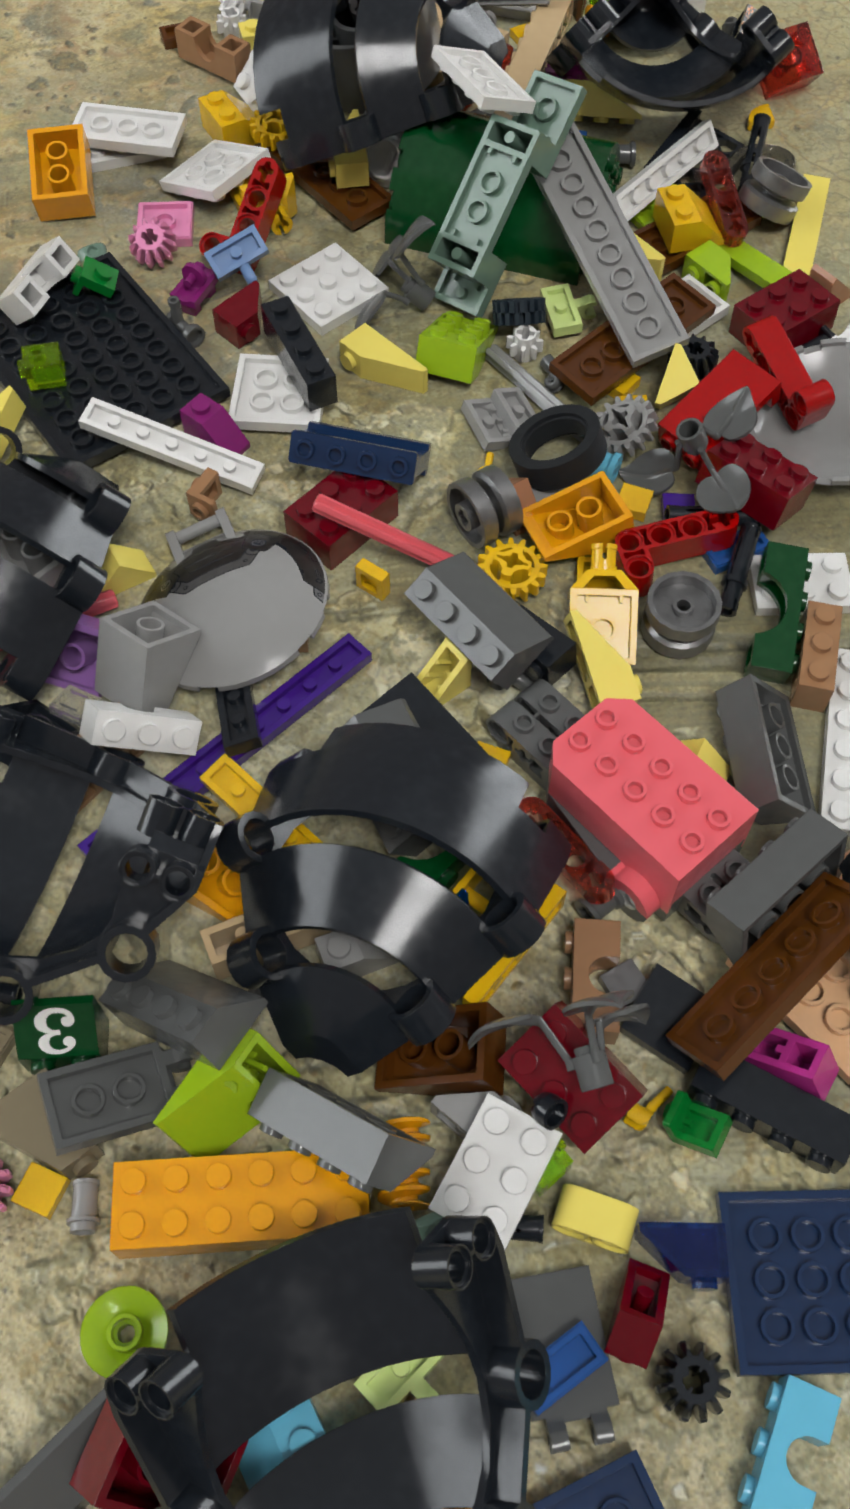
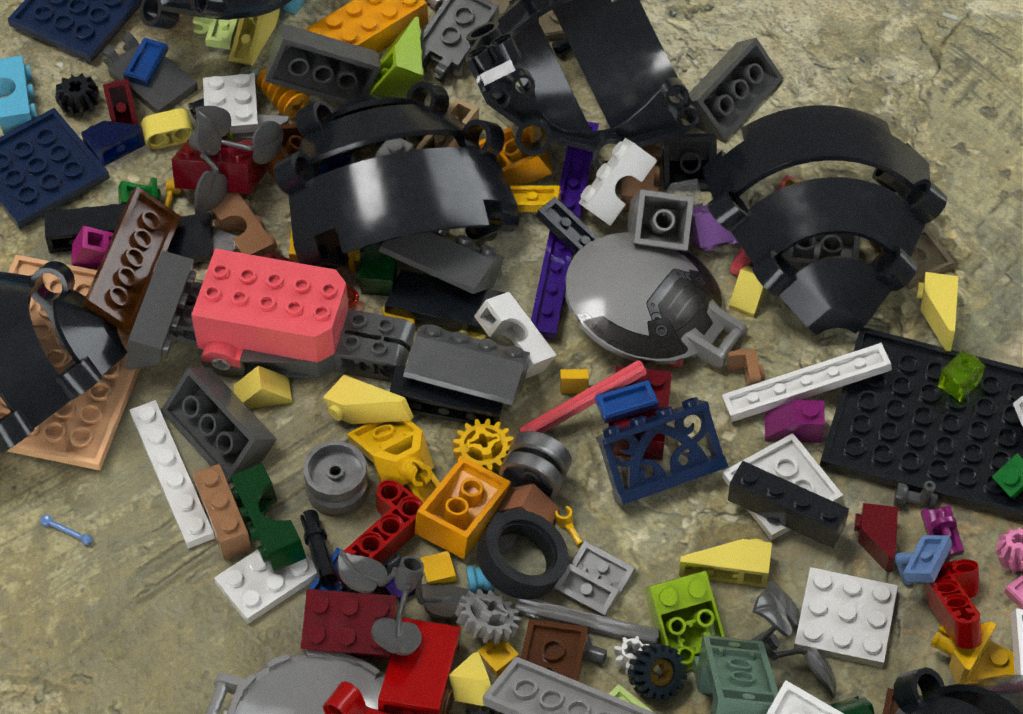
camera: 145 degrees right, 5 degrees down
(186, 1010) = (442, 62): dark grey slope -> none
(360, 495) = (626, 401): none -> blue tile
(391, 657) = (505, 317): none -> white arch

